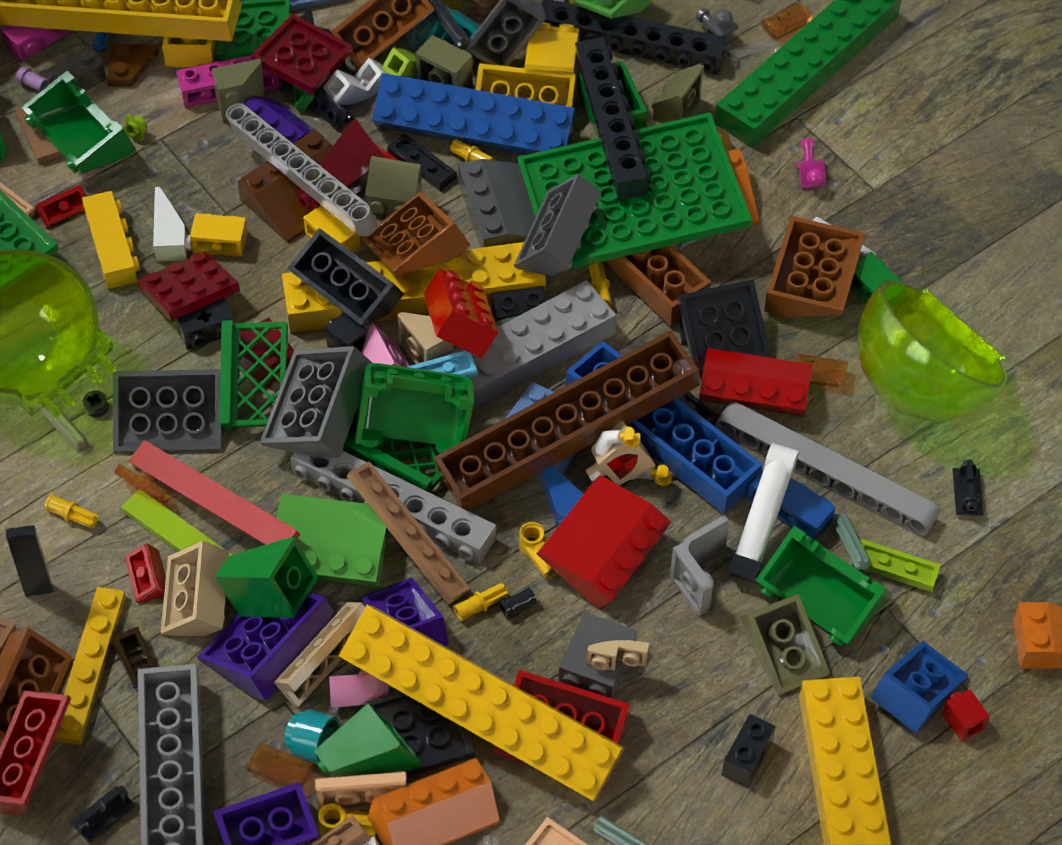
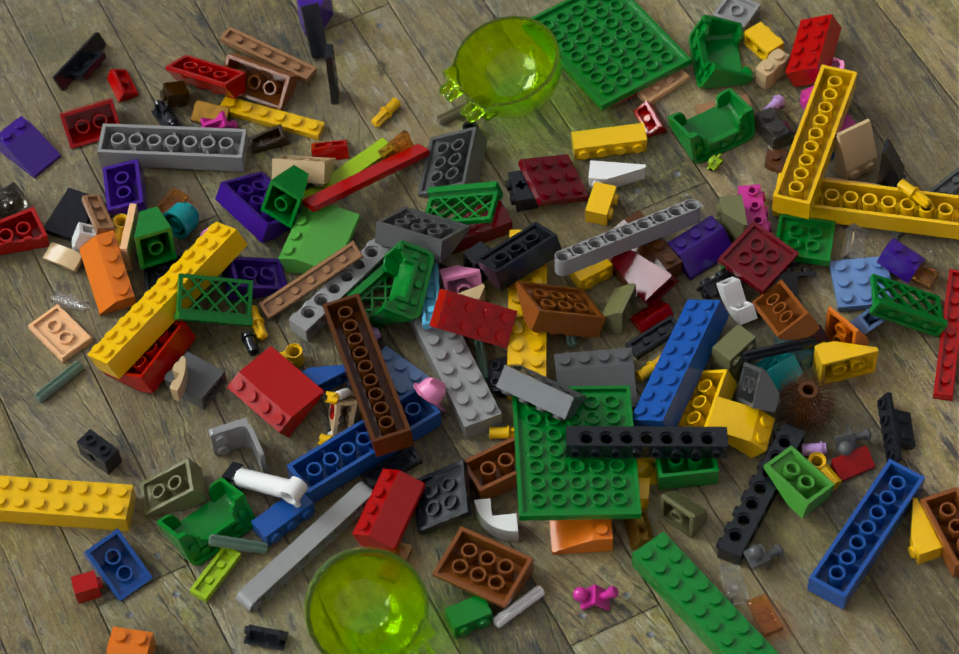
camera: 105 degrees right, 0 degrees up
(56, 805) = (174, 94): none -> dark brown brick
(91, 750) = (208, 110): none -> pearl gold slope
(120, 731) = (219, 122): none -> dark pink piece
(318, 652) = (232, 219): tan fence -> none
(401, 63) = (750, 324): lime brick -> none
(488, 627) = (217, 316): none -> green fence
(571, 354) = (432, 391): none -> bright pink piece
(738, 264) = (500, 526): none -> white brick

